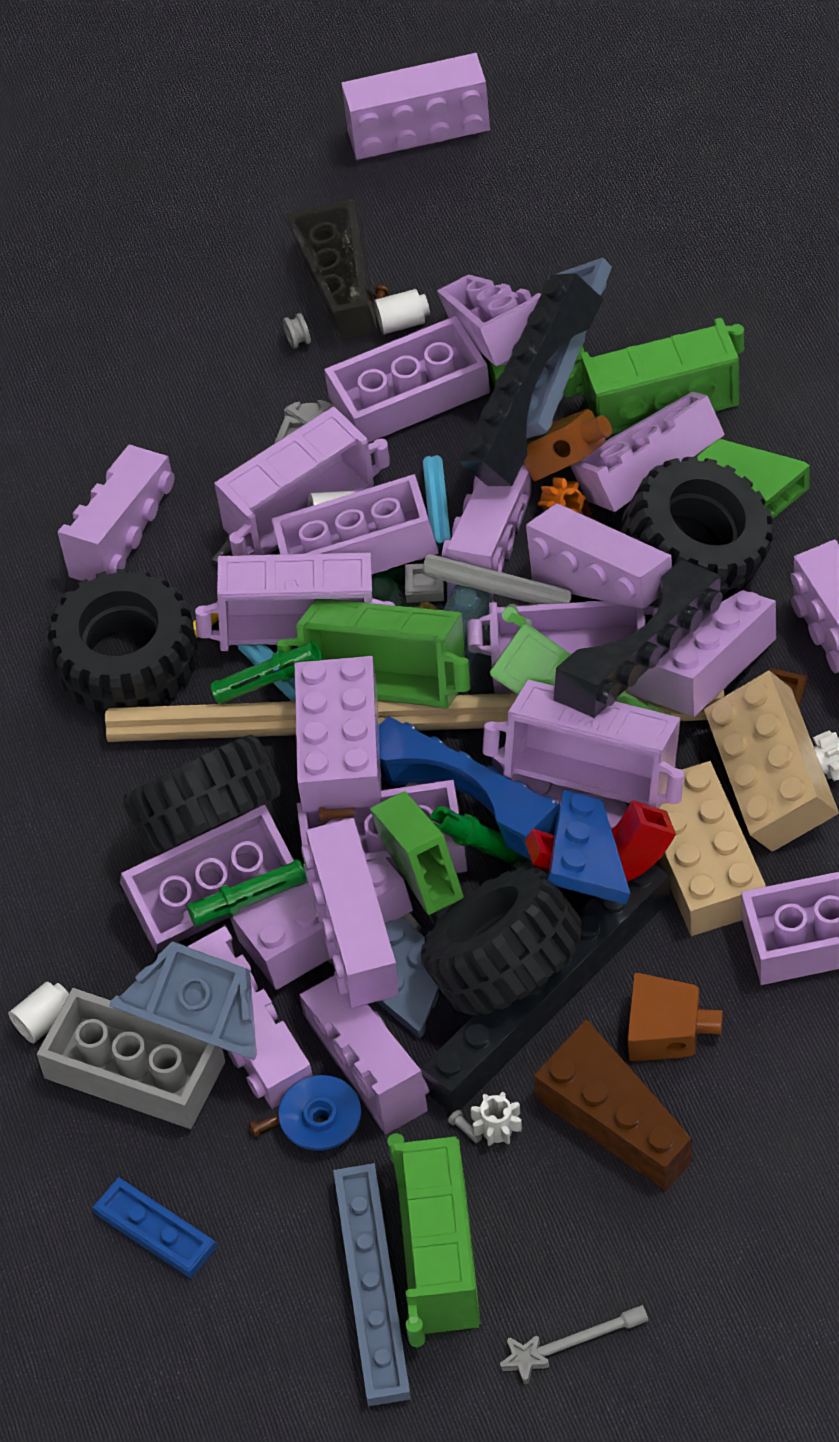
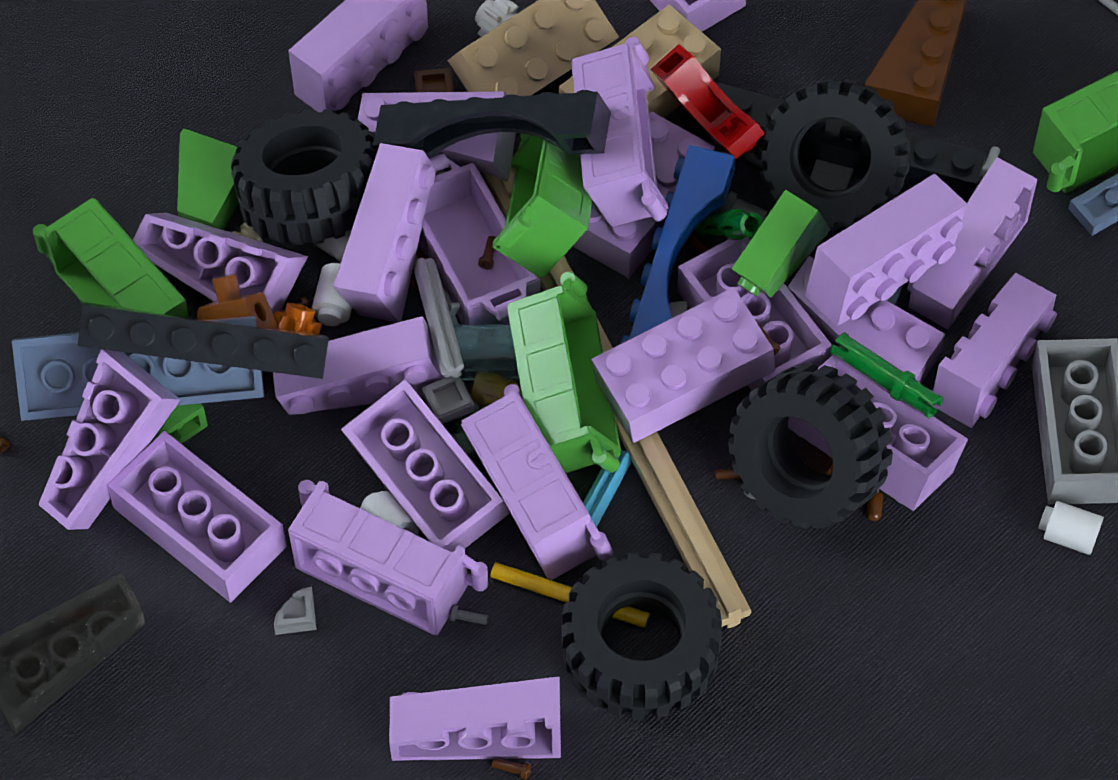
camera: 120 degrees left, 5 degrees up
(195, 997) = (1023, 361): sand blue wing -> none
(229, 687) = (634, 466): green pin -> none
(265, 1124) = (1079, 313): reddish brown piece -> none
(296, 330) = (155, 664): light grey bush -> none
(307, 411) = (260, 611): light grey tile -> none
(315, 1098) = (1050, 249): blue dish -> none
(401, 311) = (90, 565): white brick -> none
(436, 499) = (313, 453): medium azure axle -> none
(496, 1118) = (978, 131): white gear -> none
(585, 850) = (730, 100): blue wing -> none
(667, 1019) = (820, 48): dark orange torso -> none

